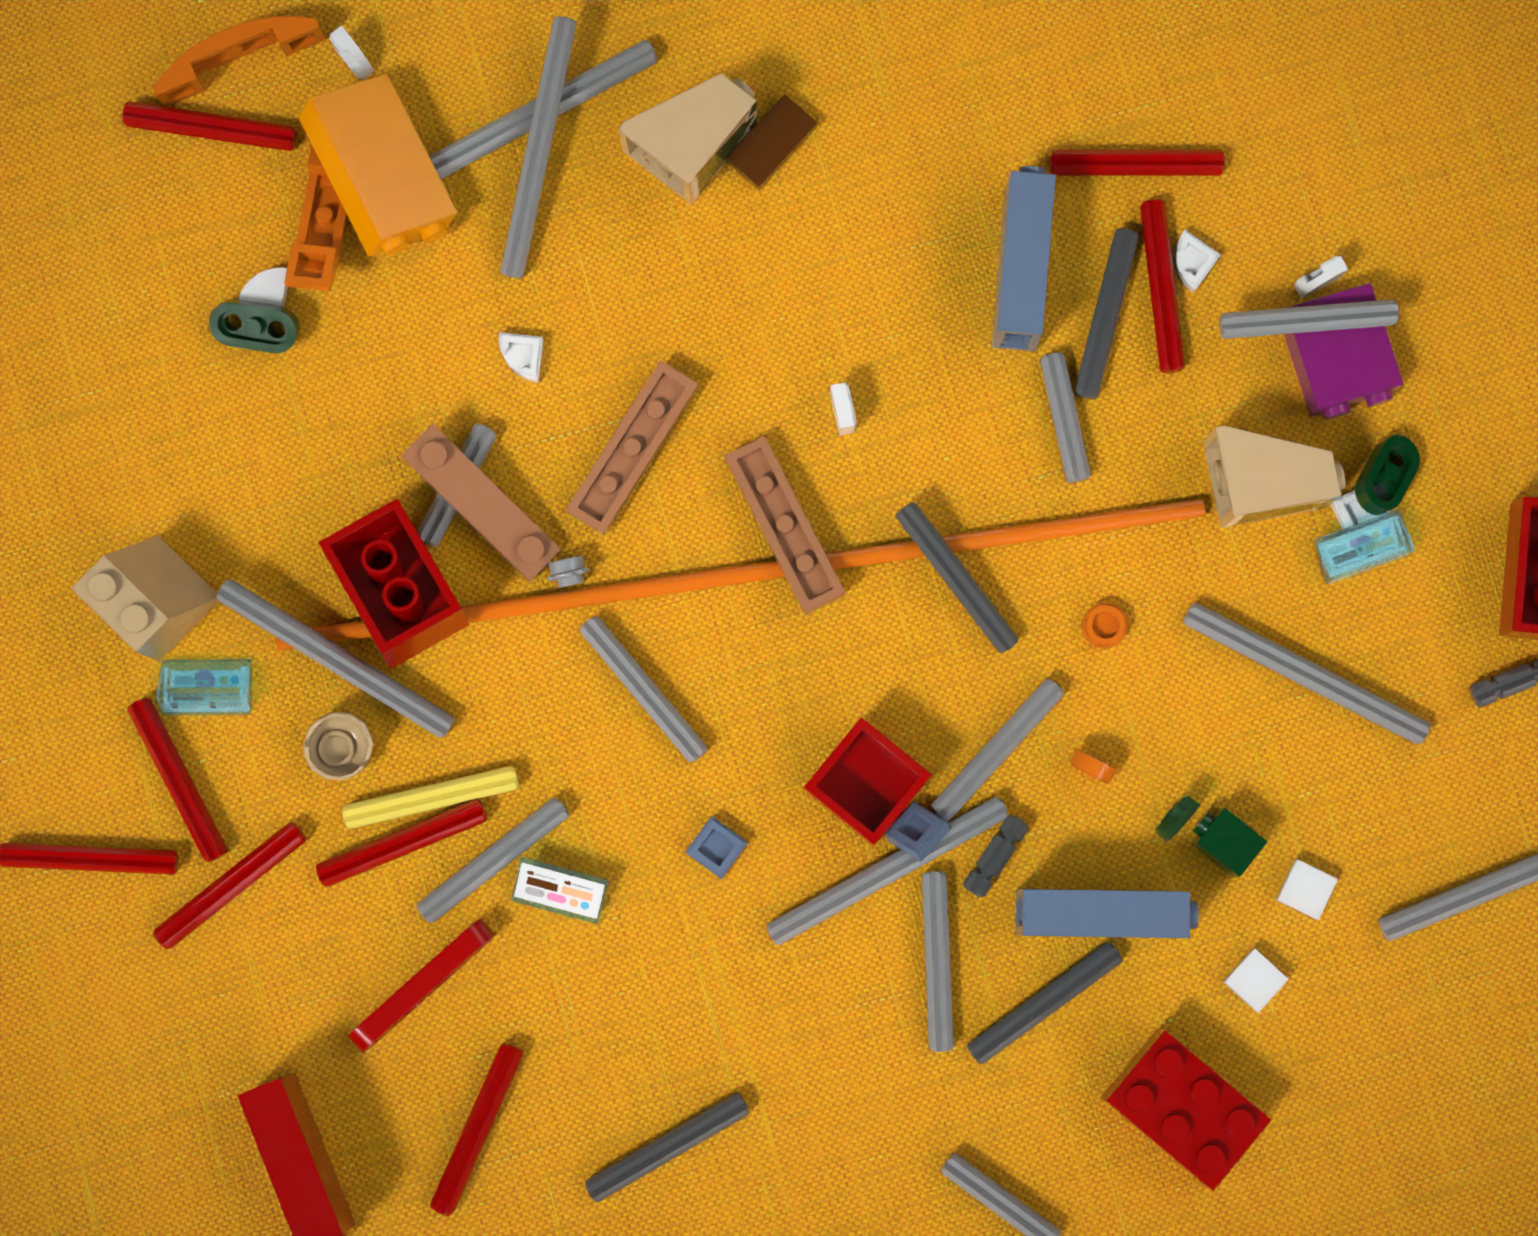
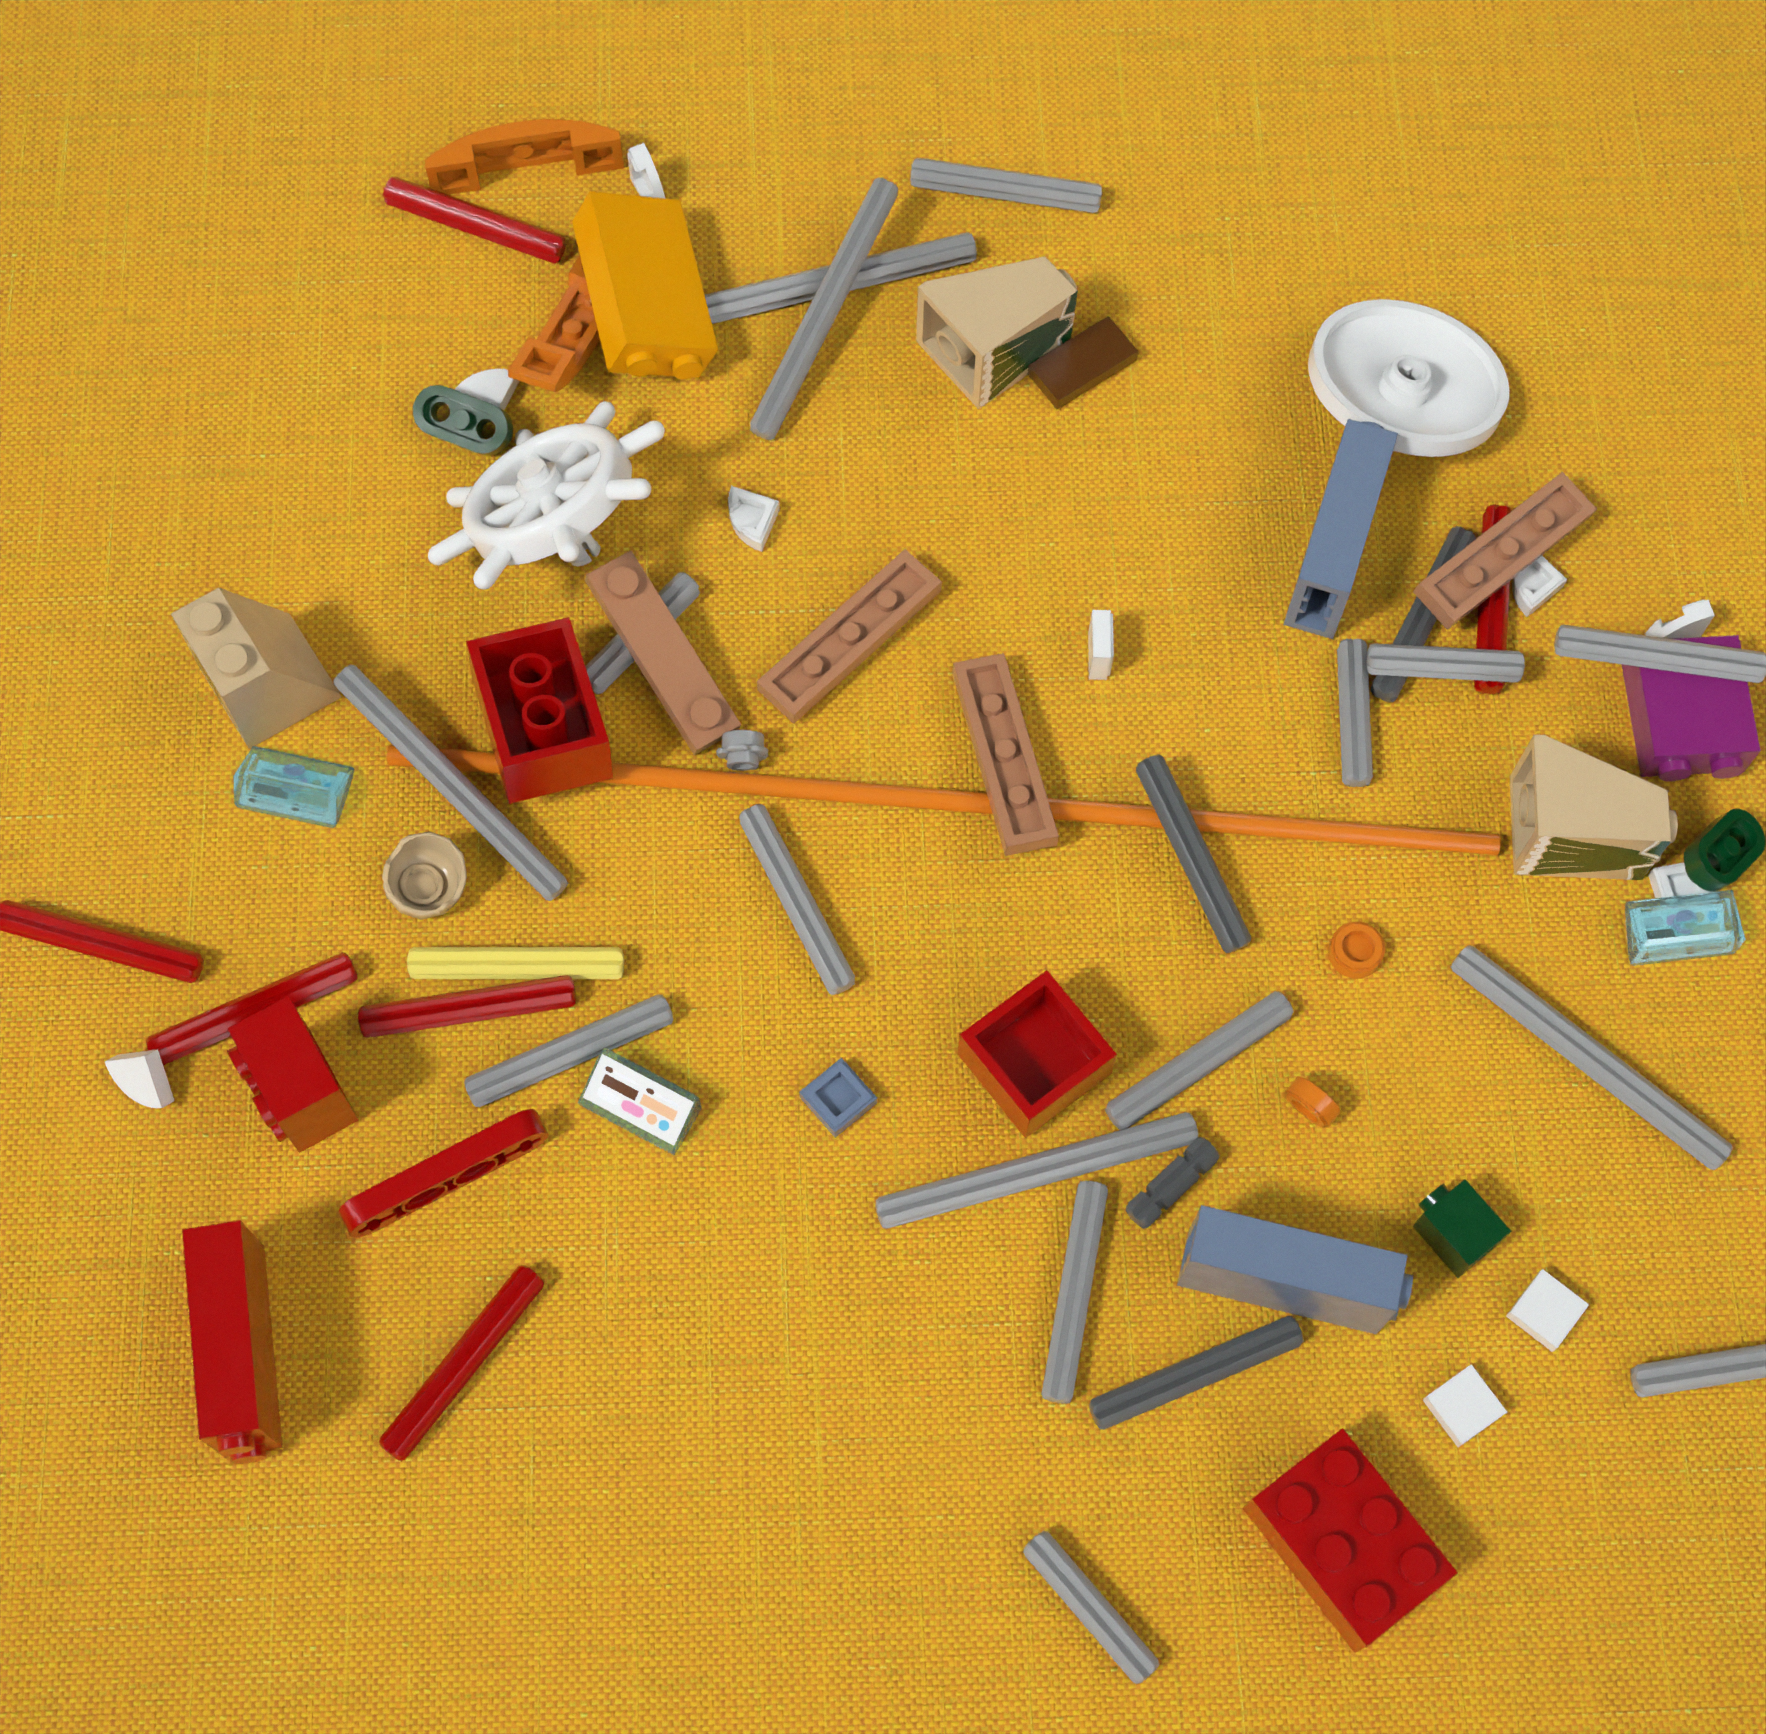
camera: 10 degrees right, 15 degrees down
(158, 964) = (141, 1078): none -> white tile
(177, 780) = (229, 879): red axle -> none
(280, 941) = (289, 1076): none -> red piece
(349, 392) = (547, 495): none -> white piece
(667, 1147) = (688, 1440): dark grey axle -> none
(917, 831) = (1084, 1128): sand blue tile -> none
(1054, 99) = (1410, 375): none -> white dish
(1132, 362) = (1445, 662): none -> light grey axle
(1137, 162) = (1495, 469): red axle -> none
(1164, 246) = (1504, 550): none -> nougat plate
(1176, 817) = (1412, 1178): clear green tile -> none

